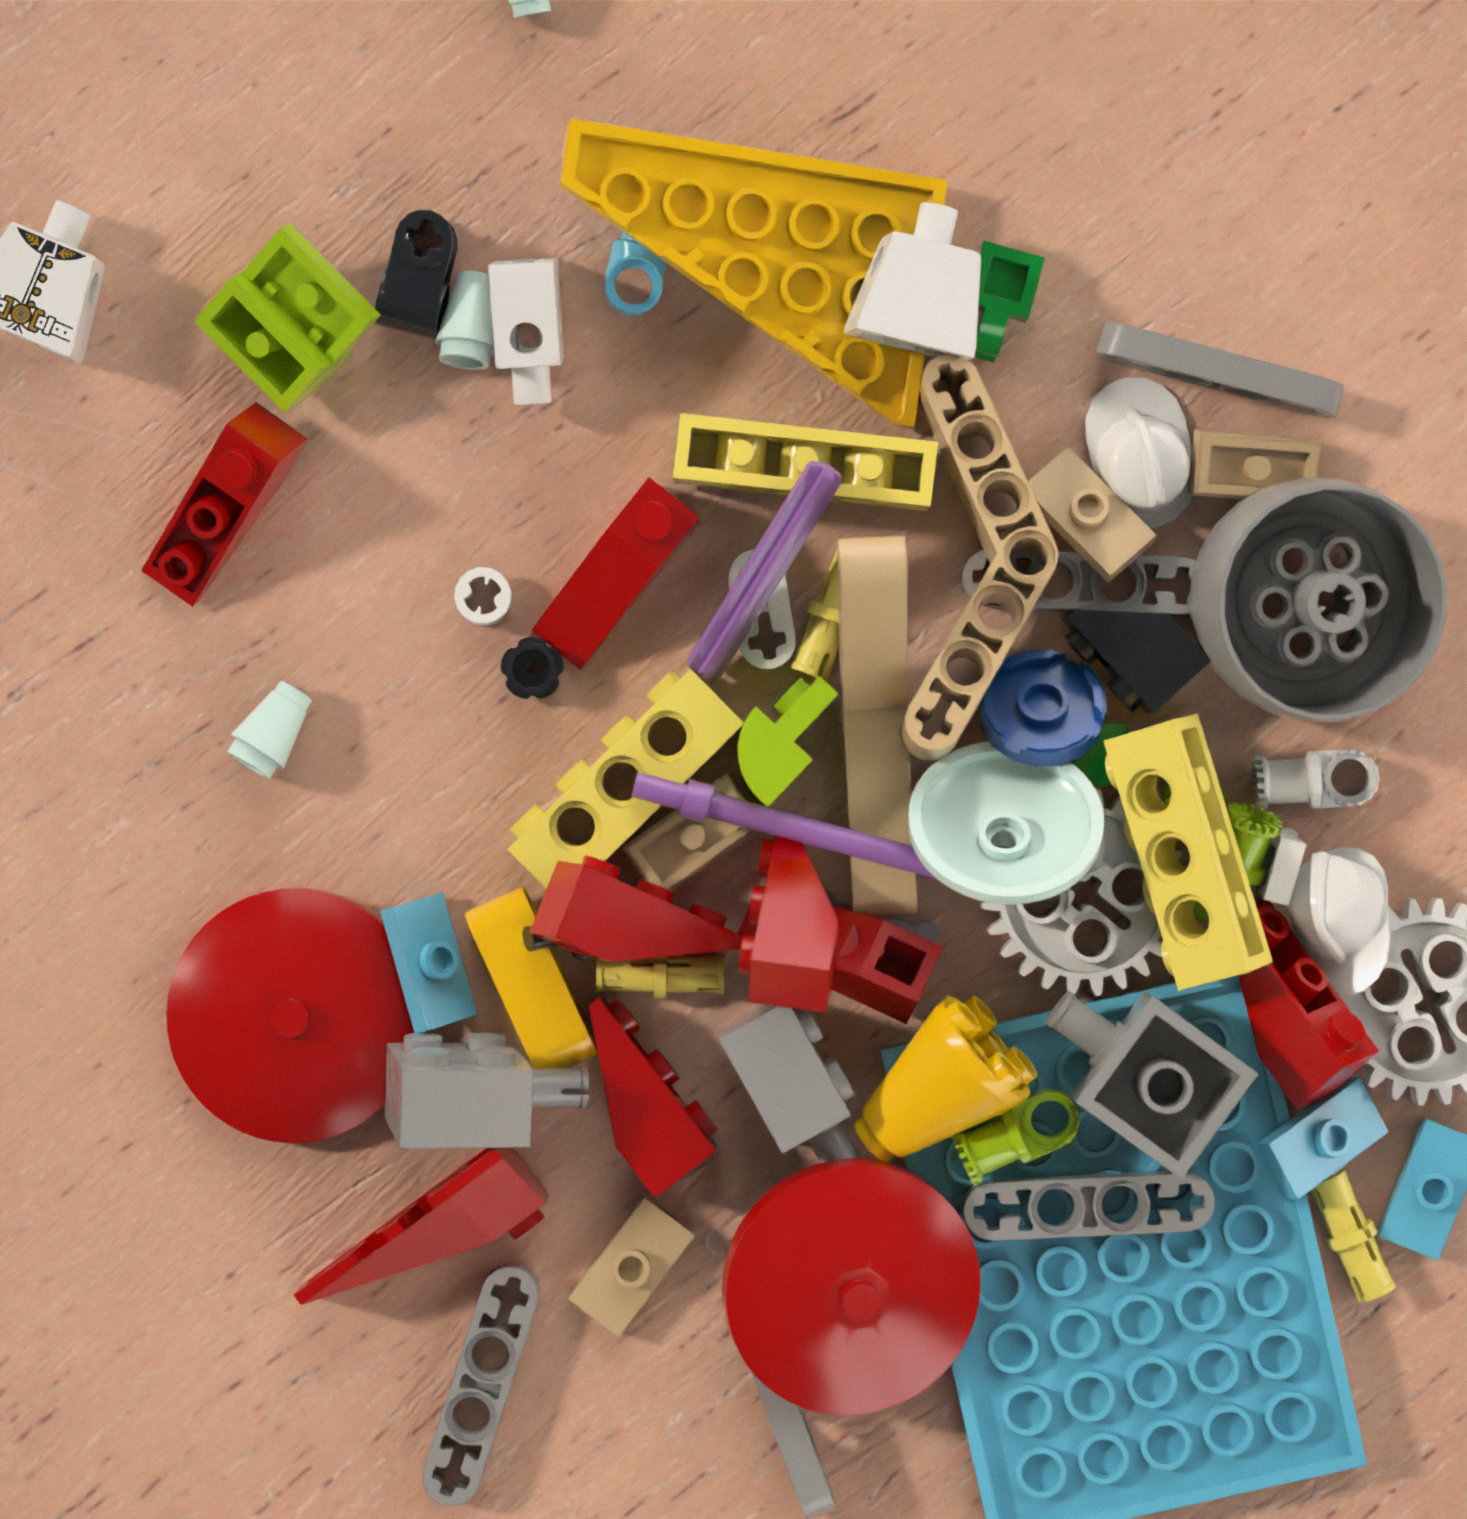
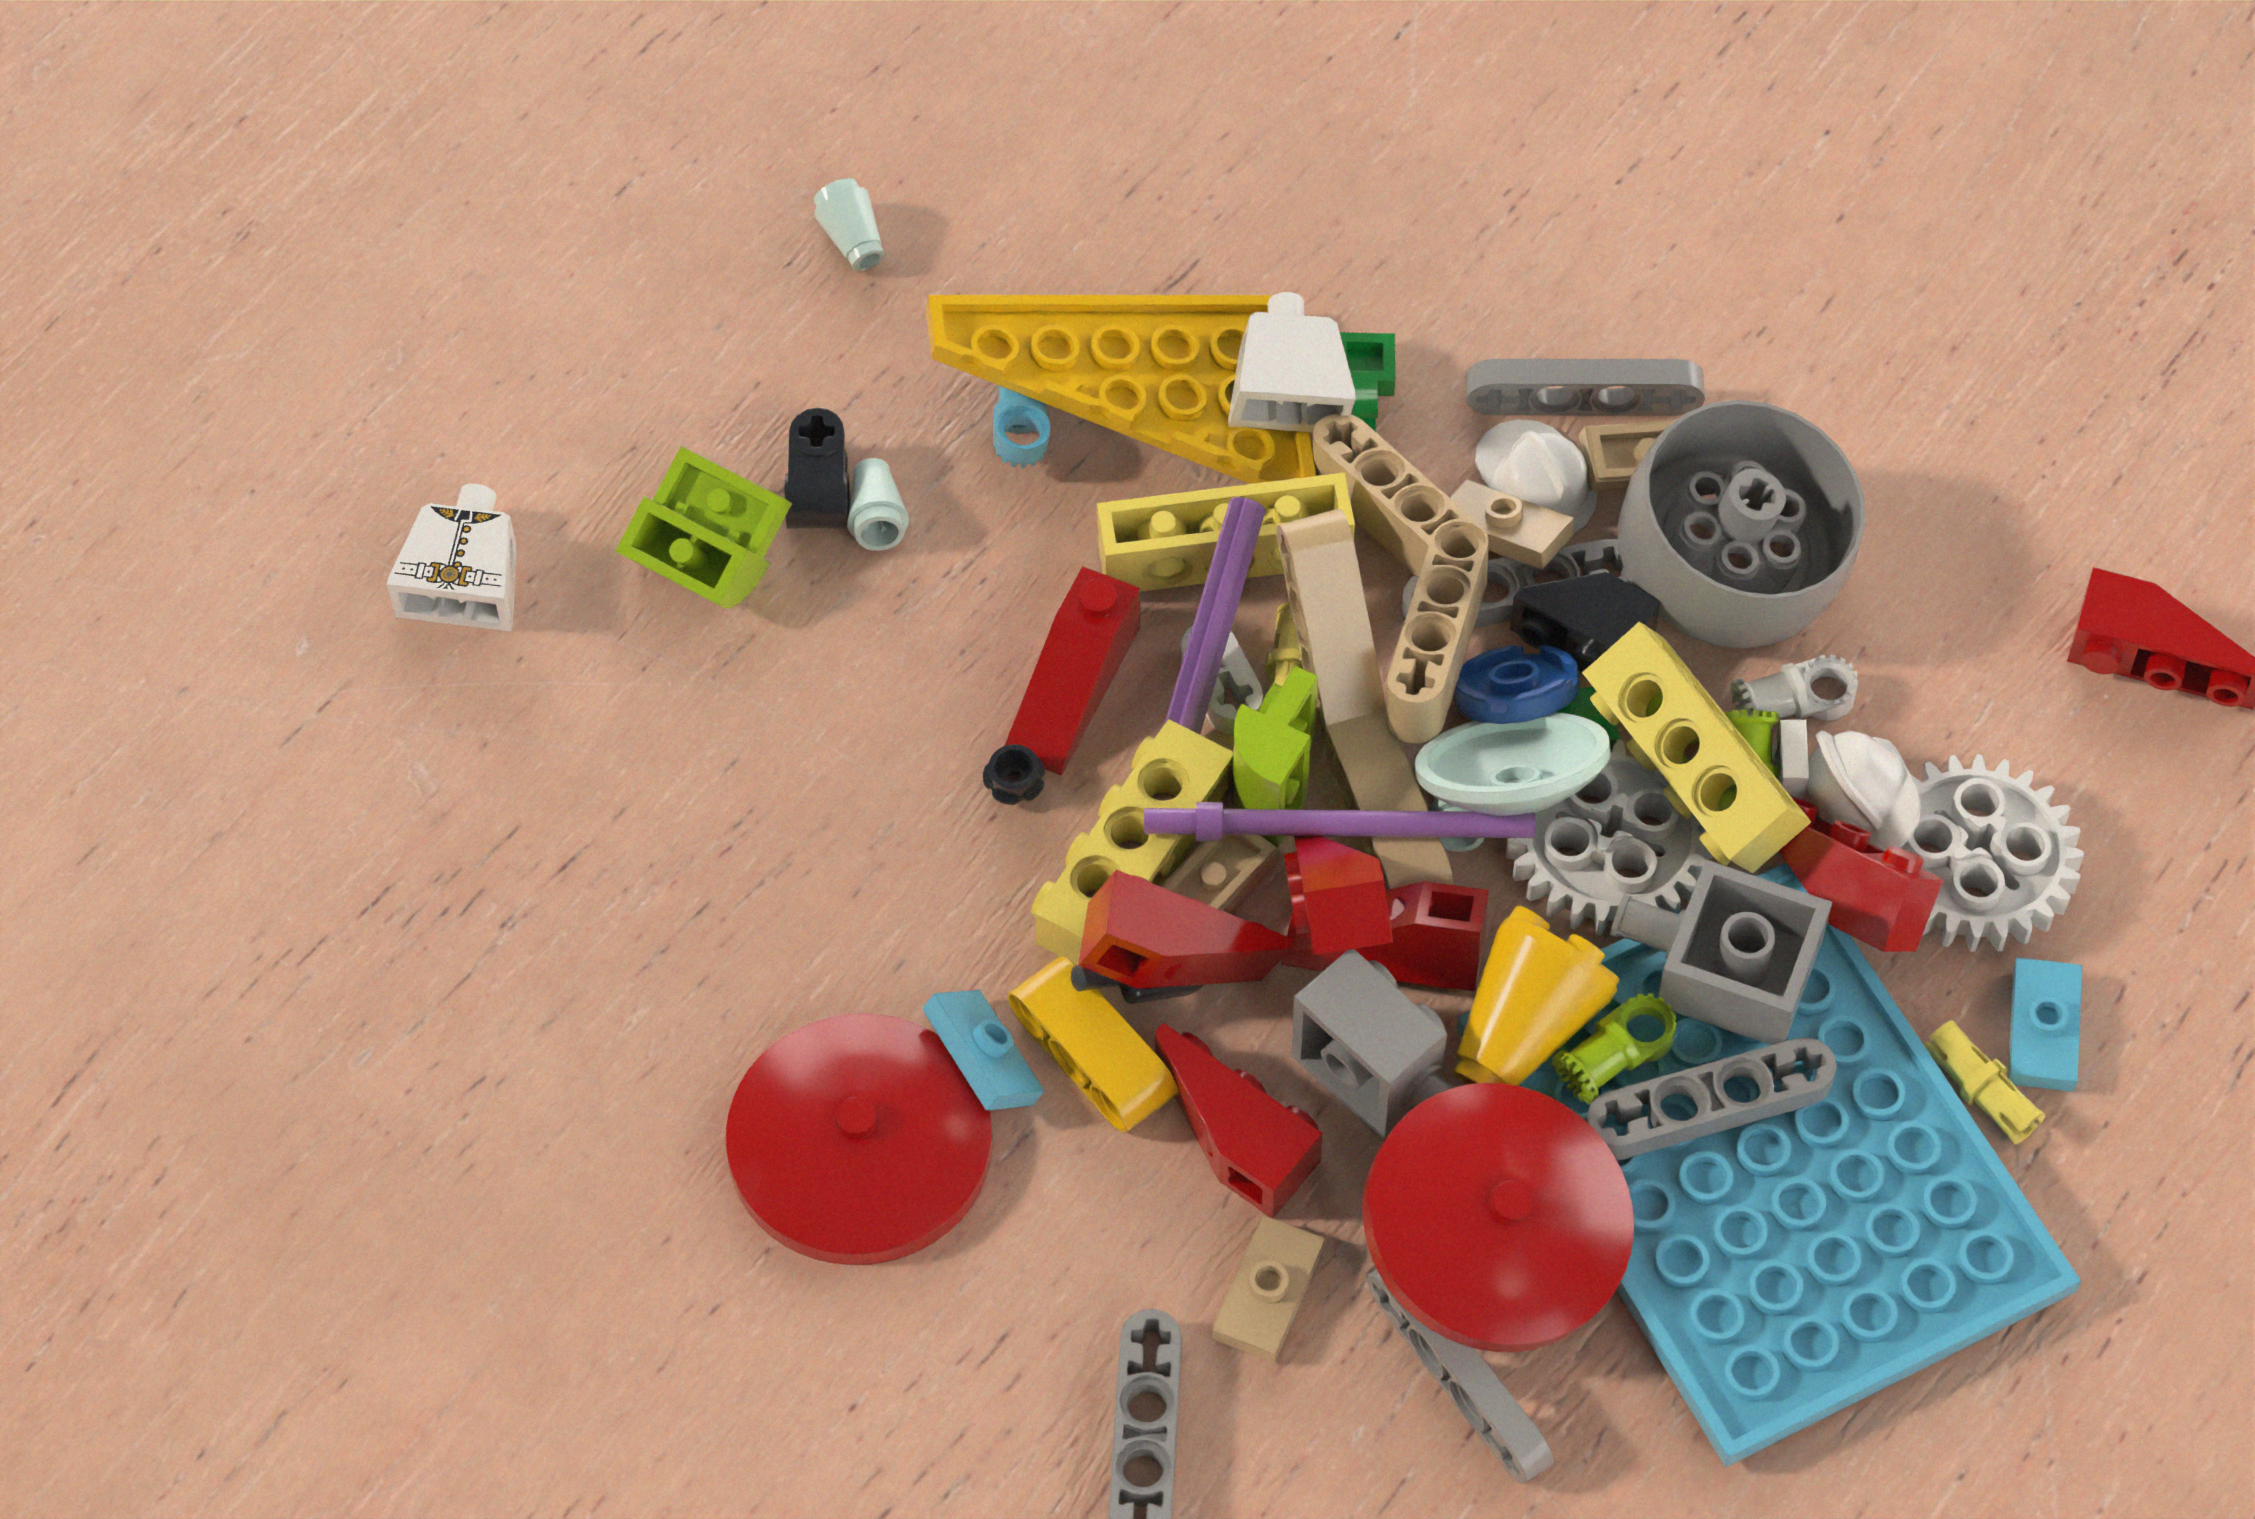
camera: 15 degrees left, 30 degrees down
(223, 501) = (677, 701): red slope -> none
(270, 731) = (770, 886): light aqua cone -> none
(463, 1211) = (1088, 1258): red wedge -> none
(464, 592) = (948, 746): white bush -> none
(470, 1092) = (1057, 1129): light grey brick -> none
(527, 294) = (931, 475): white torso -> none
(663, 974) = (1221, 1007): light yellow pin -> none
(1322, 1138) = (1920, 990): medium azure plate -> none

